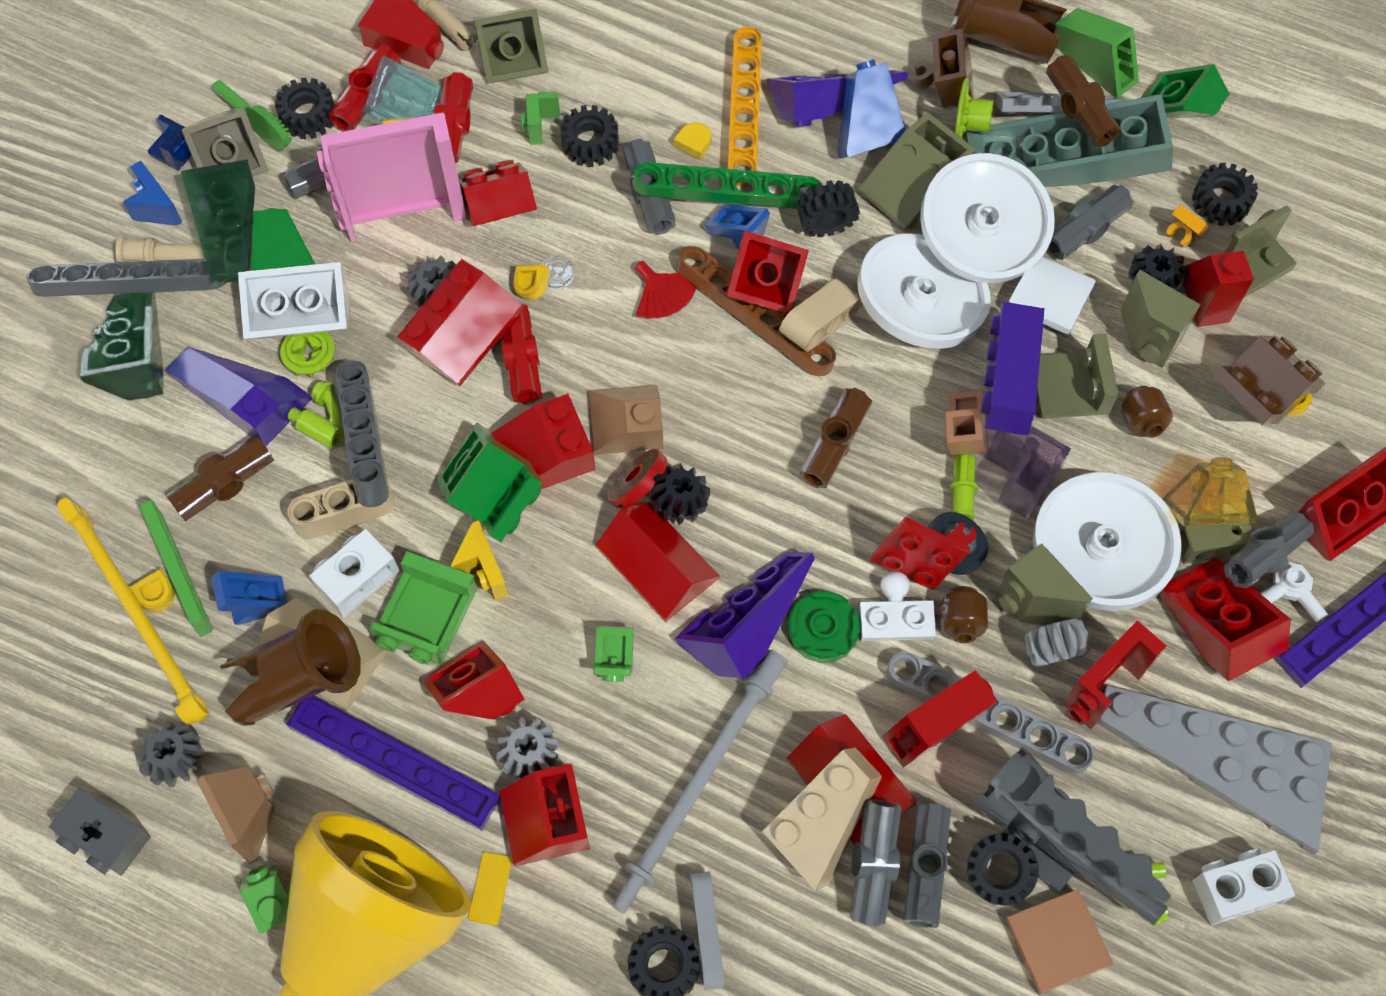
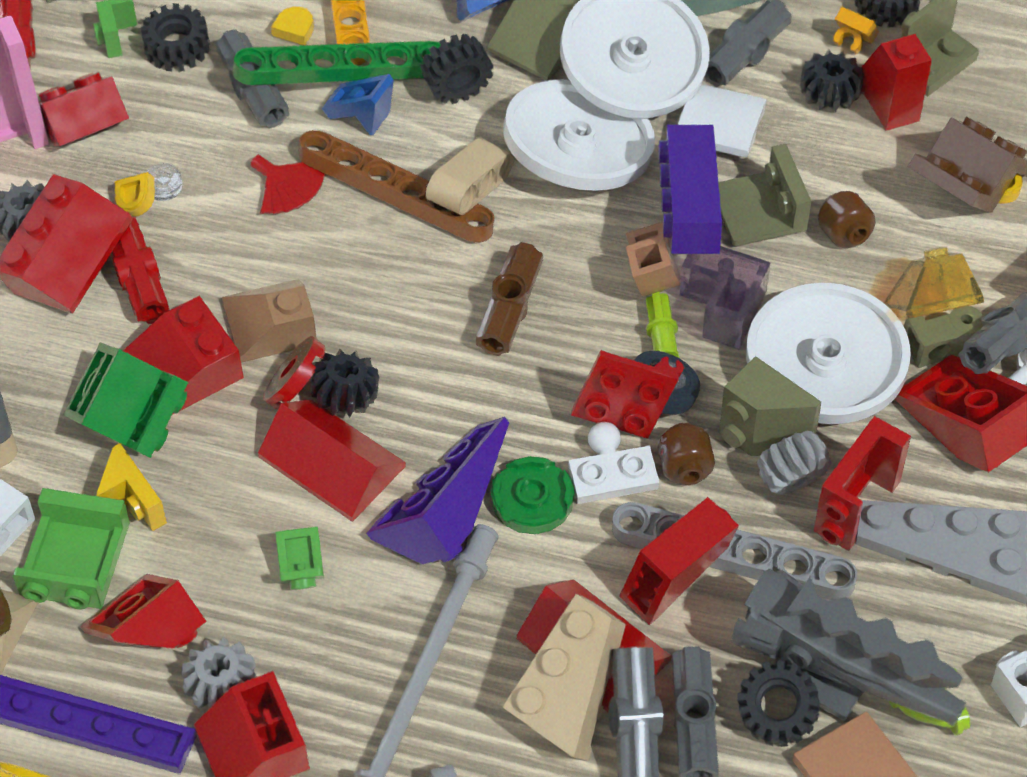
camera: 10 degrees left, 10 degrees down
(767, 273) = (401, 140): red slope -> none
(1156, 318) = (838, 122): olive slope -> none

